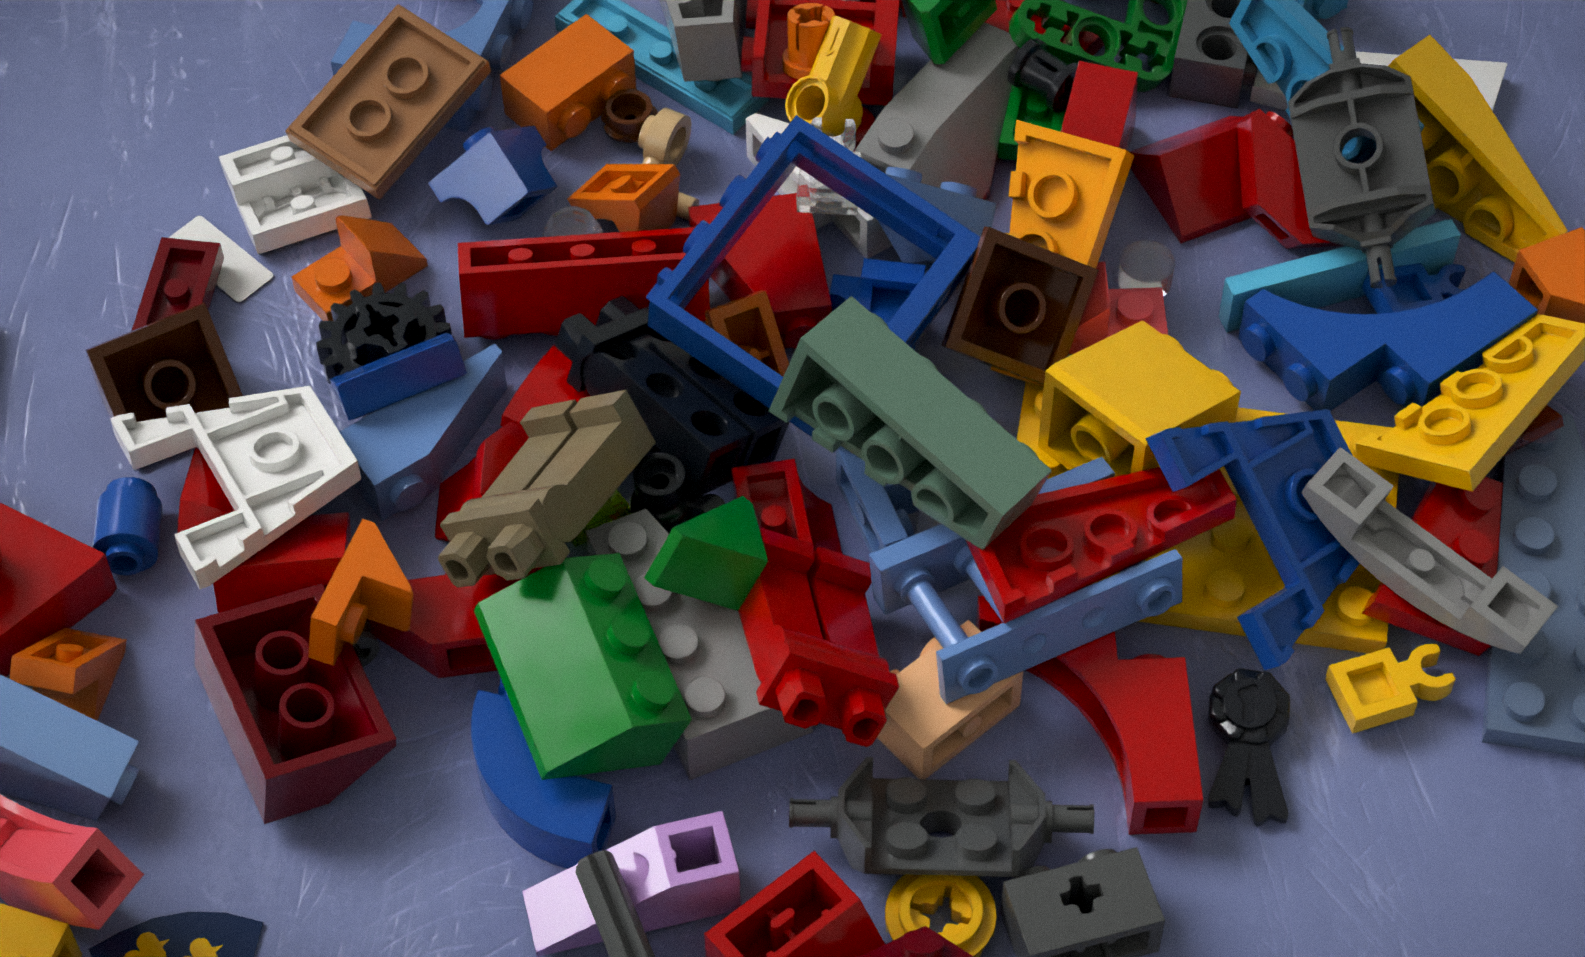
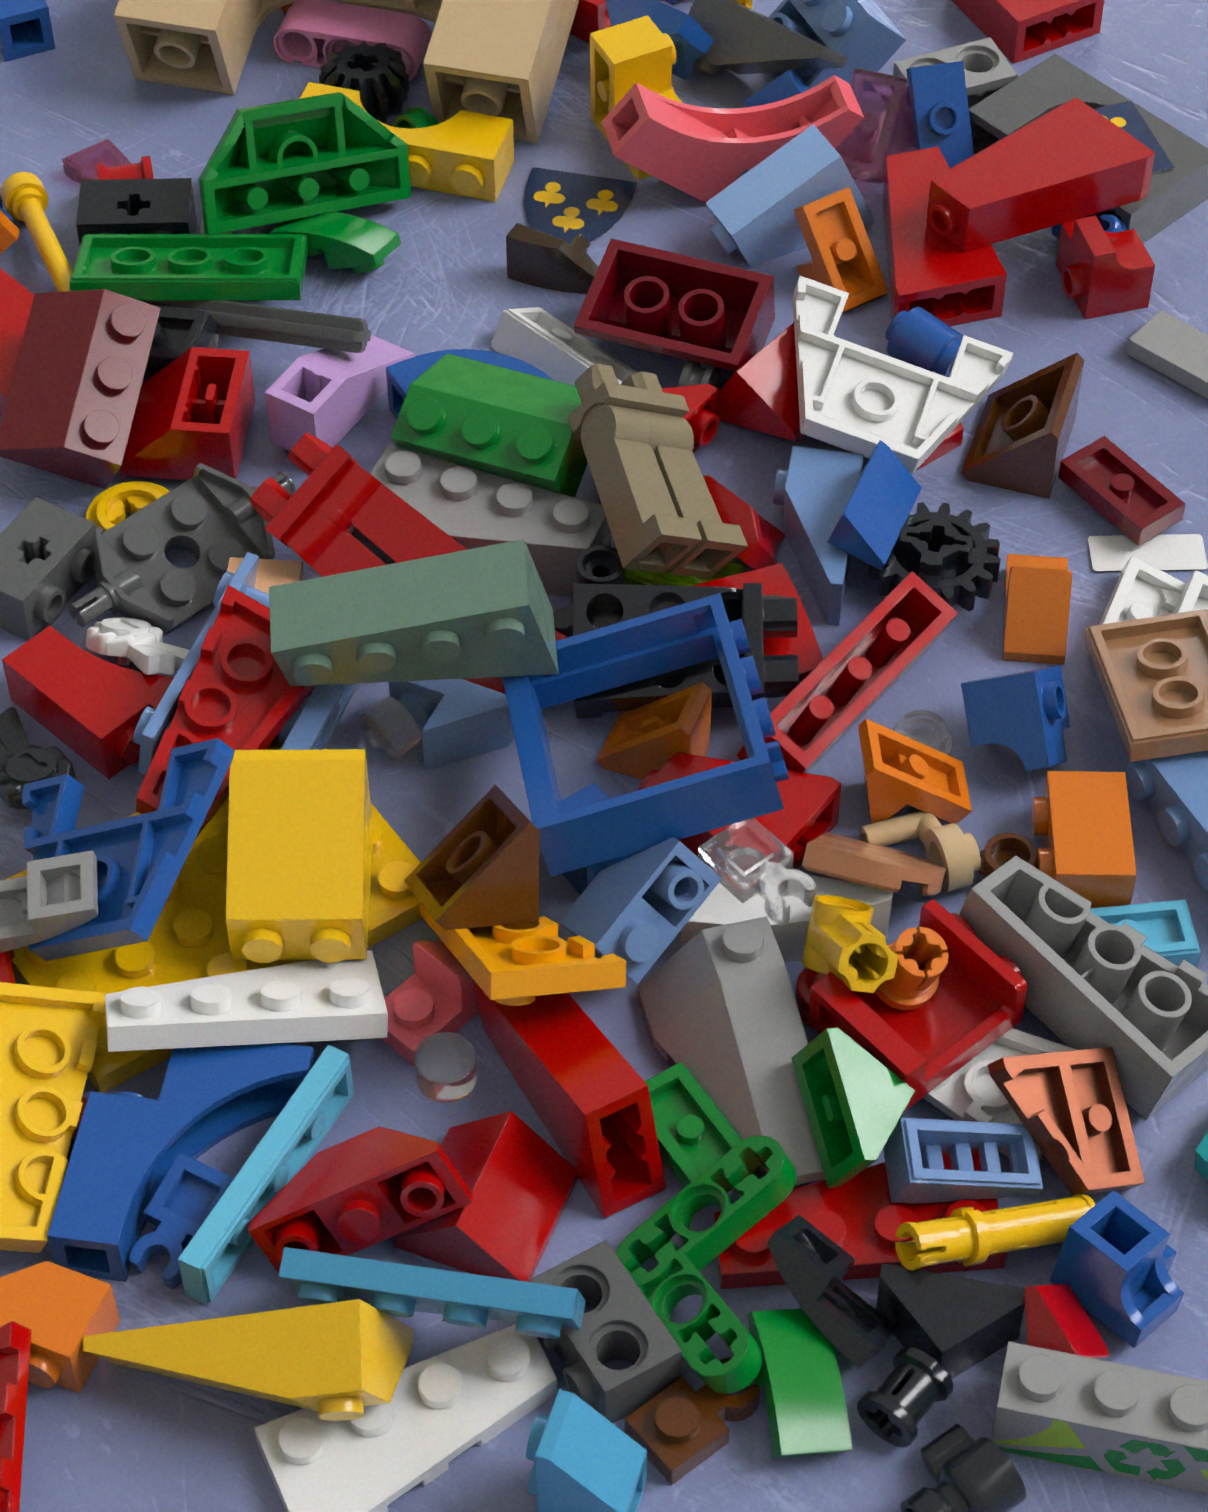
camera: 135 degrees right, 5 degrees down
(281, 867) = (549, 261): none -> dark brown slope
(362, 588) = (693, 356): orange slope -> none
(403, 791) = (551, 345): none -> white slope
(713, 556) = (486, 508): green slope -> none
(724, 141) = (871, 864): none -> nougat tile
(1043, 74) = (695, 1124): black bush -> none
(1065, 765) = (135, 641): none -> white piece
(1273, 358) = (252, 1007): none -> white wing
(1369, 201) = (316, 1196): dark grey plate -> none

